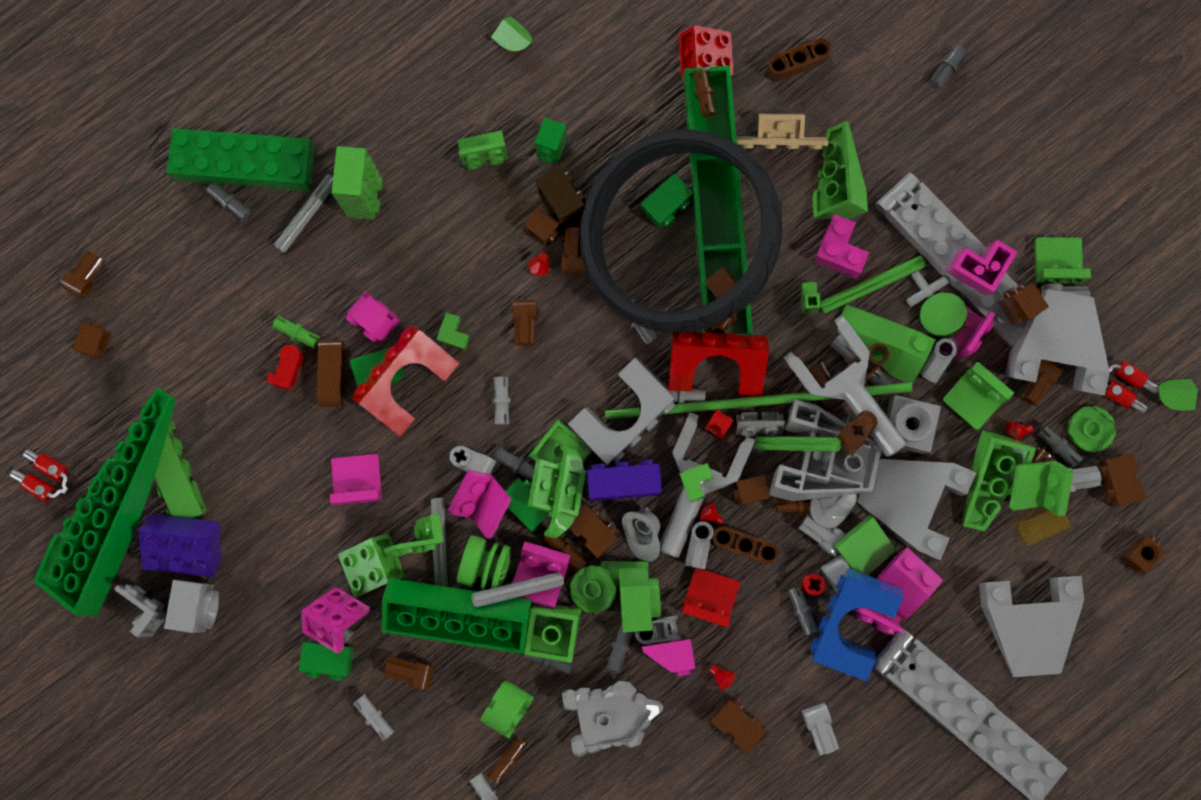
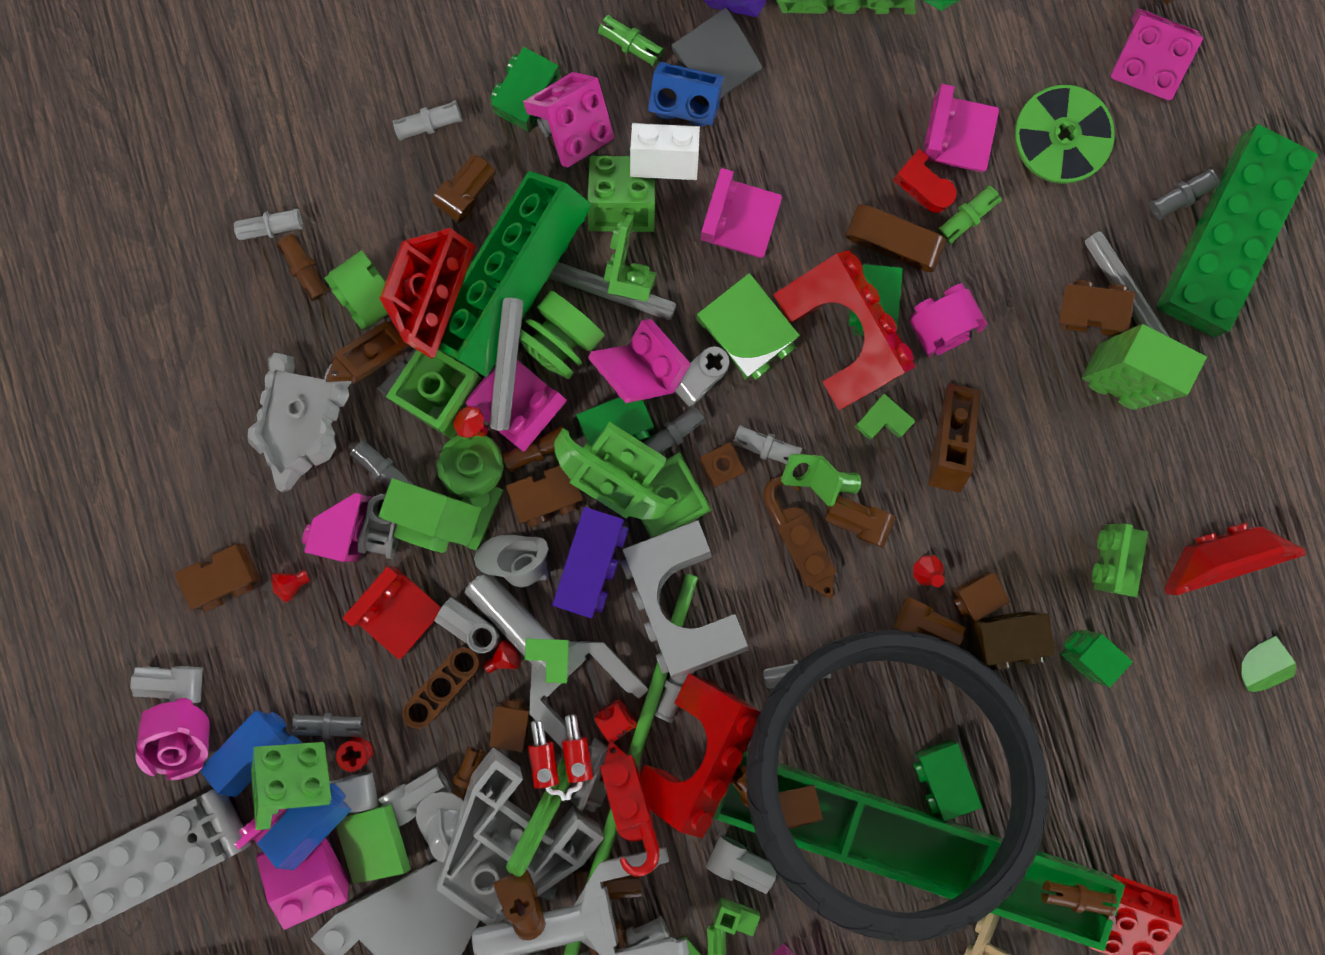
camera: 110 degrees right, 5 degrees up
(141, 254) = (1156, 54): none -> dark pink bracket
(223, 309) = (1057, 110): none -> bright green piece
(243, 360) = (959, 131): none -> dark pink bracket
(254, 540) = (719, 49): none -> dark grey slope
(265, 602) = (631, 40): none -> bright green pin
(282, 549) = (686, 85): none -> blue brick
(325, 226) = (1096, 307): none -> reddish brown brick
(331, 546) = (664, 151): none -> white slope
(428, 443) = (749, 327): none -> bright green panel
(447, 282) = (955, 439): none -> reddish brown slope
(453, 85) = (1229, 556): none -> red wedge
(487, 665) = (425, 286): none -> red wedge
(507, 357) = (821, 477): none -> bright green bracket
(526, 424) = (722, 465): none -> reddish brown brick
(540, 681) = (367, 354): none -> reddish brown plate
(552, 355) = (801, 541): none -> reddish brown plate
(565, 599) = (470, 423): none -> red rock
(763, 457) = (575, 755): none -> red piece
(768, 390) = (629, 807): none -> red plate
(775, 312) = (733, 861): none -> light grey piece
(845, 616) = (288, 779): none -> bright green bracket
(854, 706) = (173, 739): none -> dark pink brick

